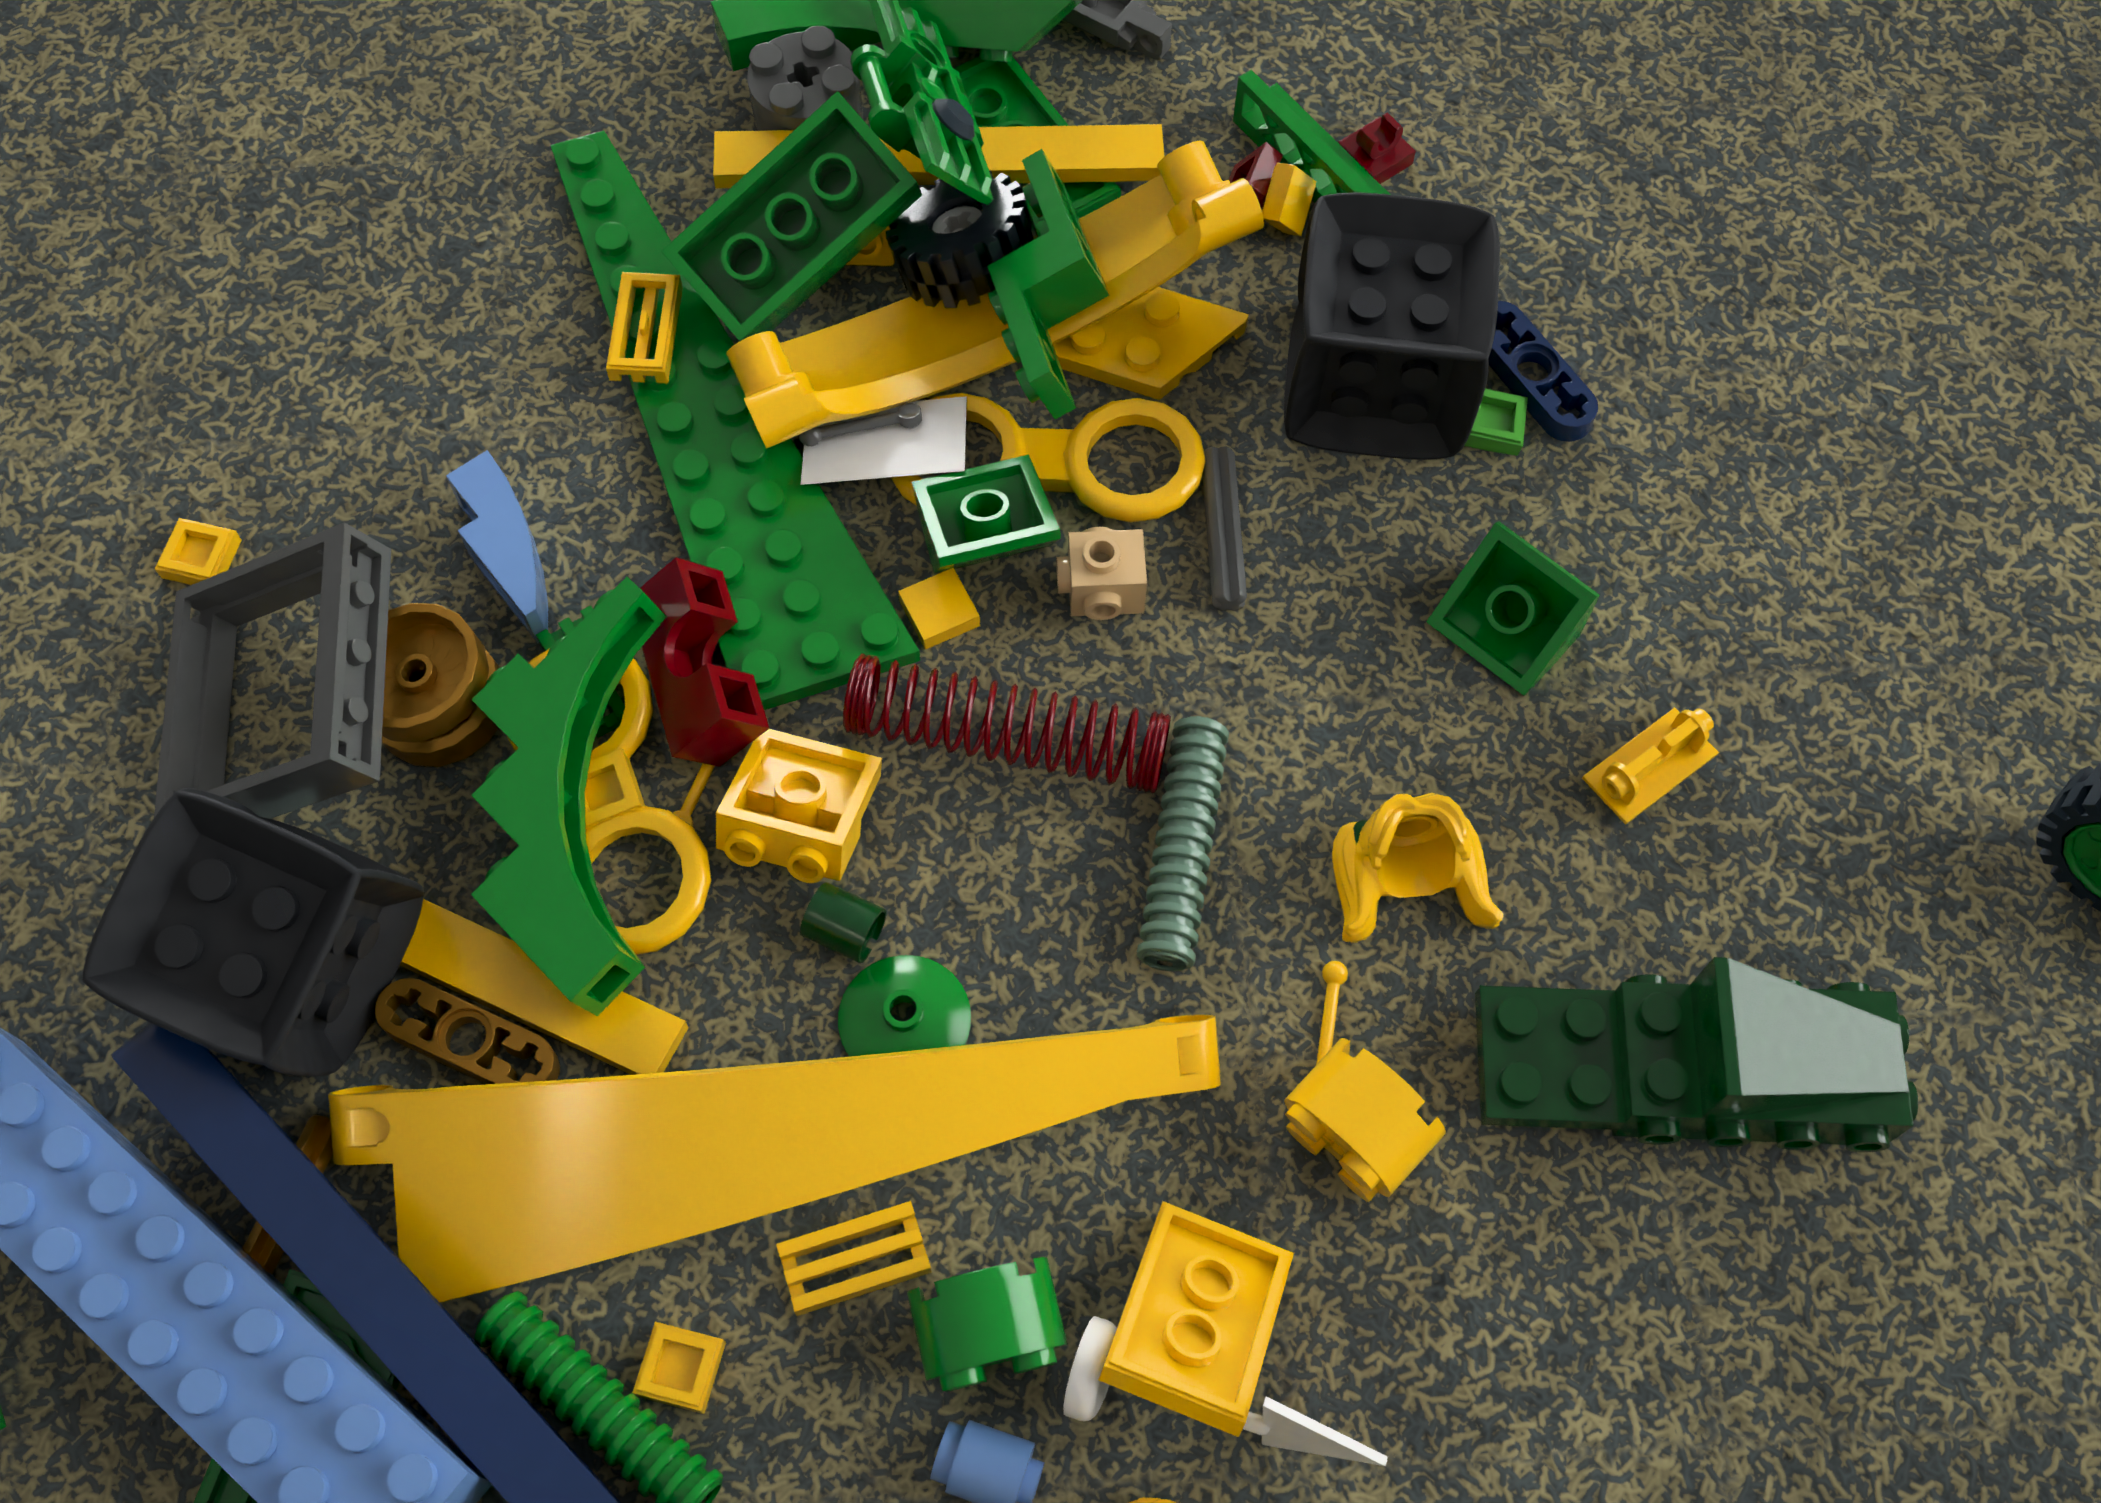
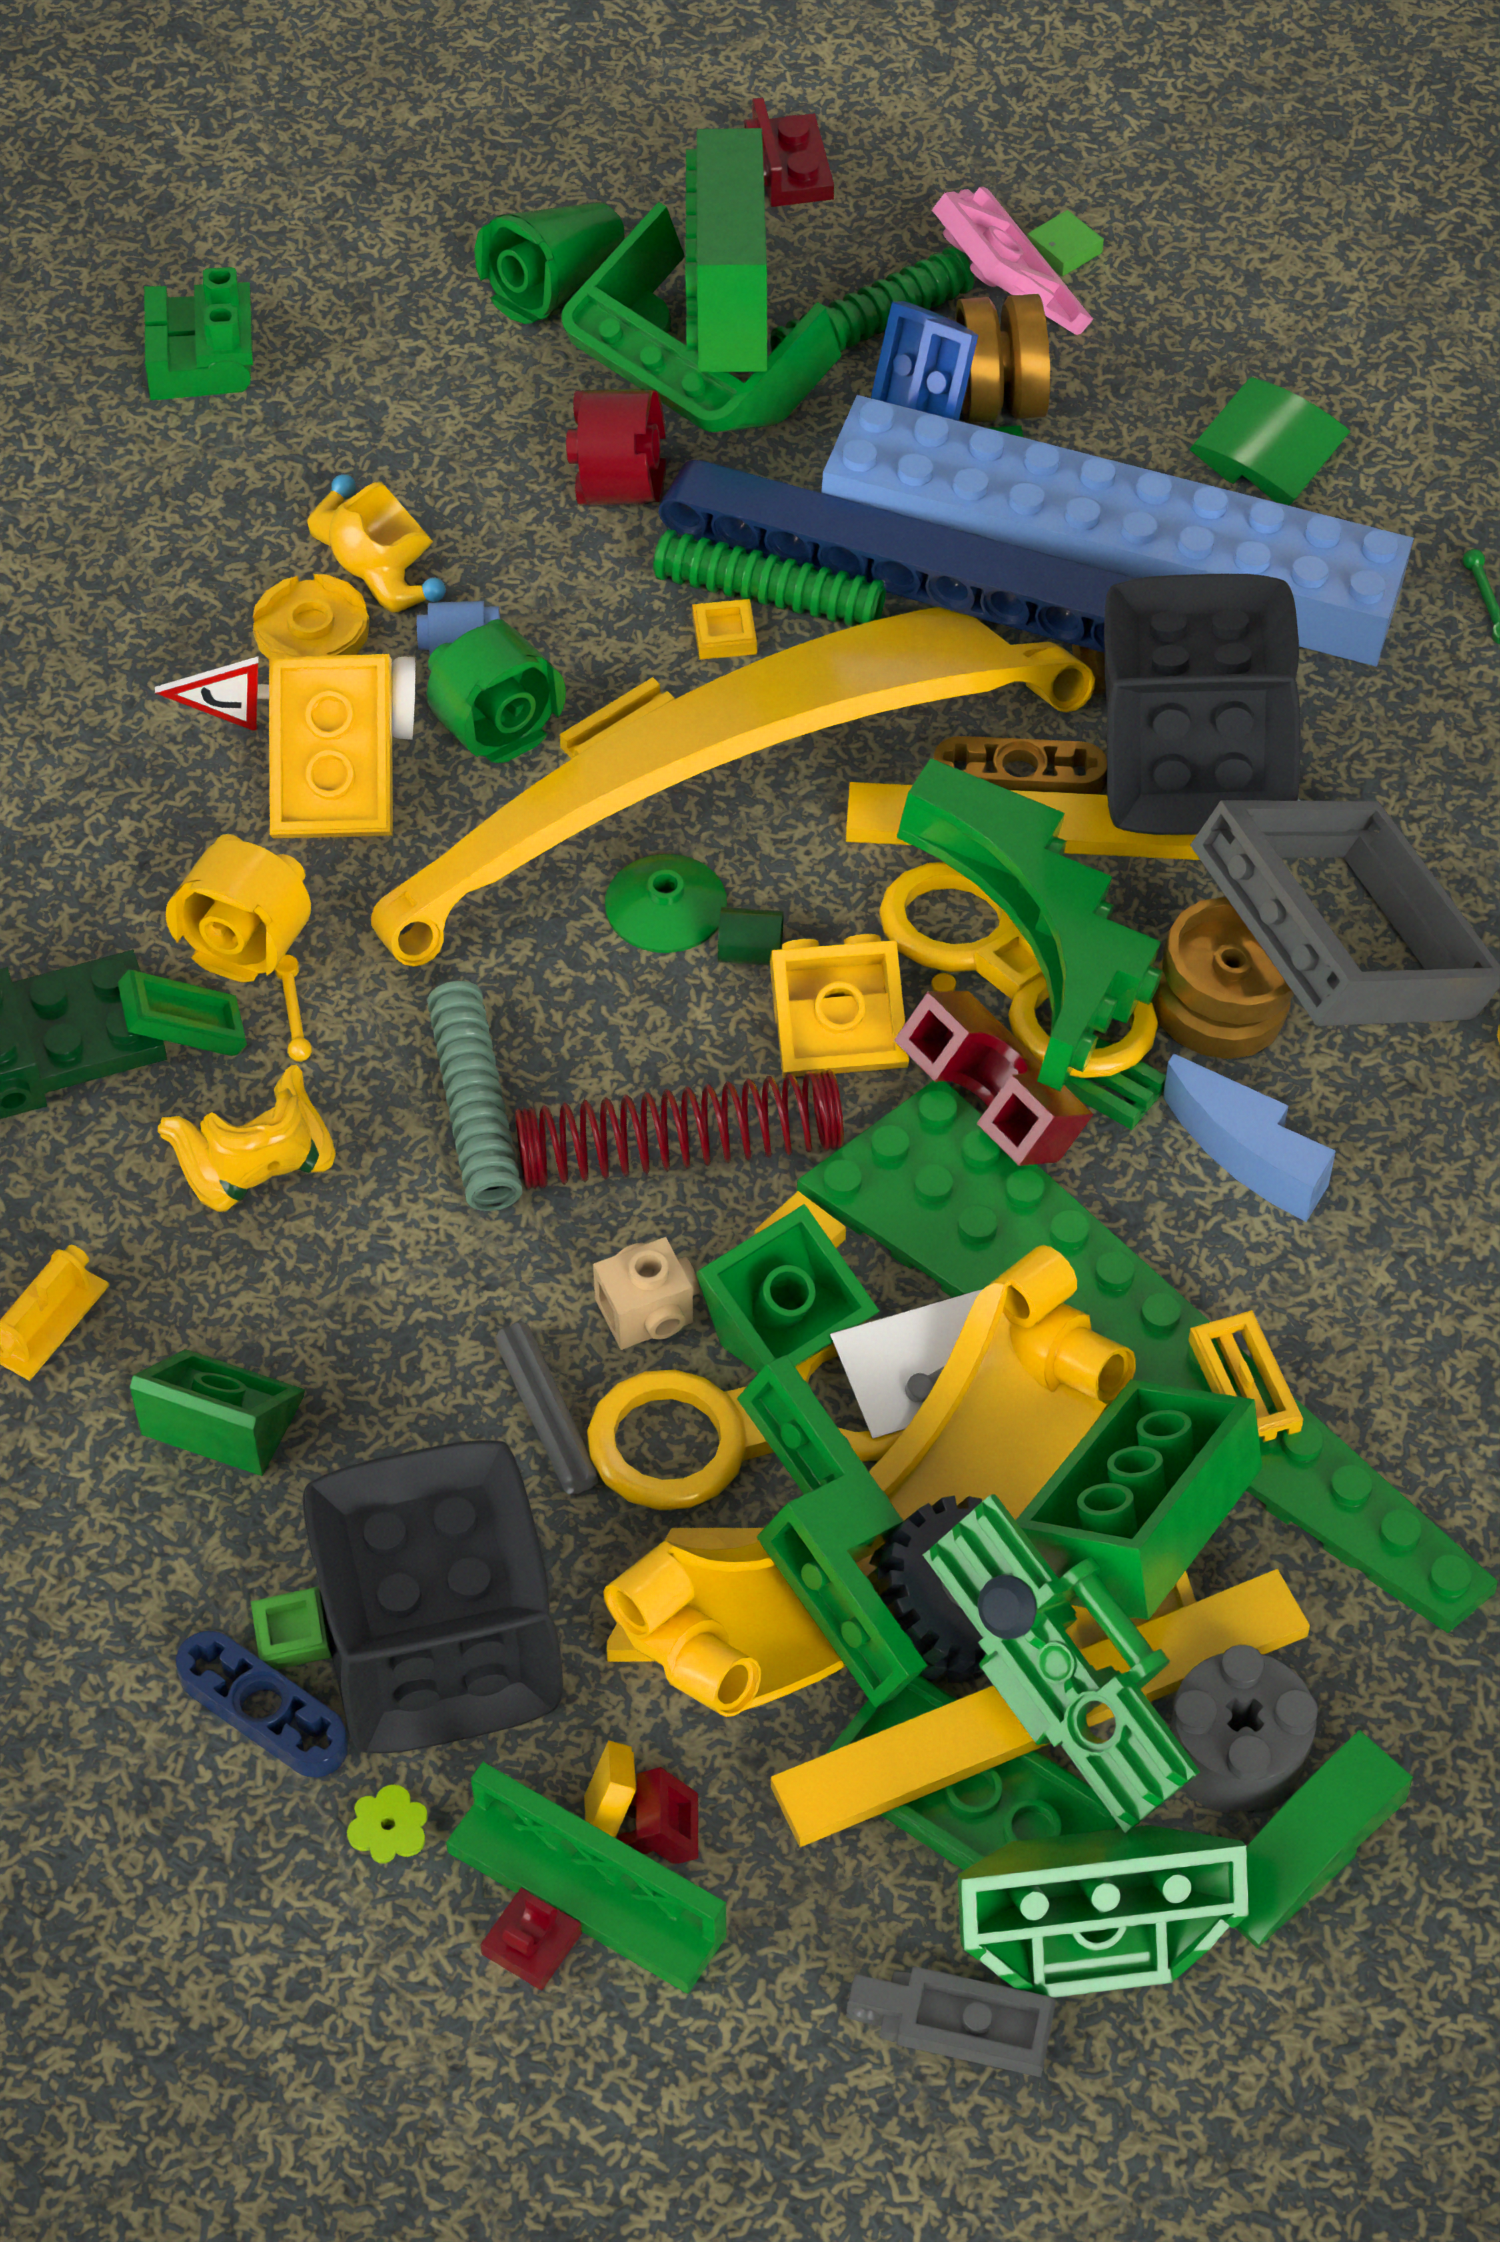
camera: 160 degrees right, 10 degrees down
(1453, 1020) = (181, 1013): none -> green tile

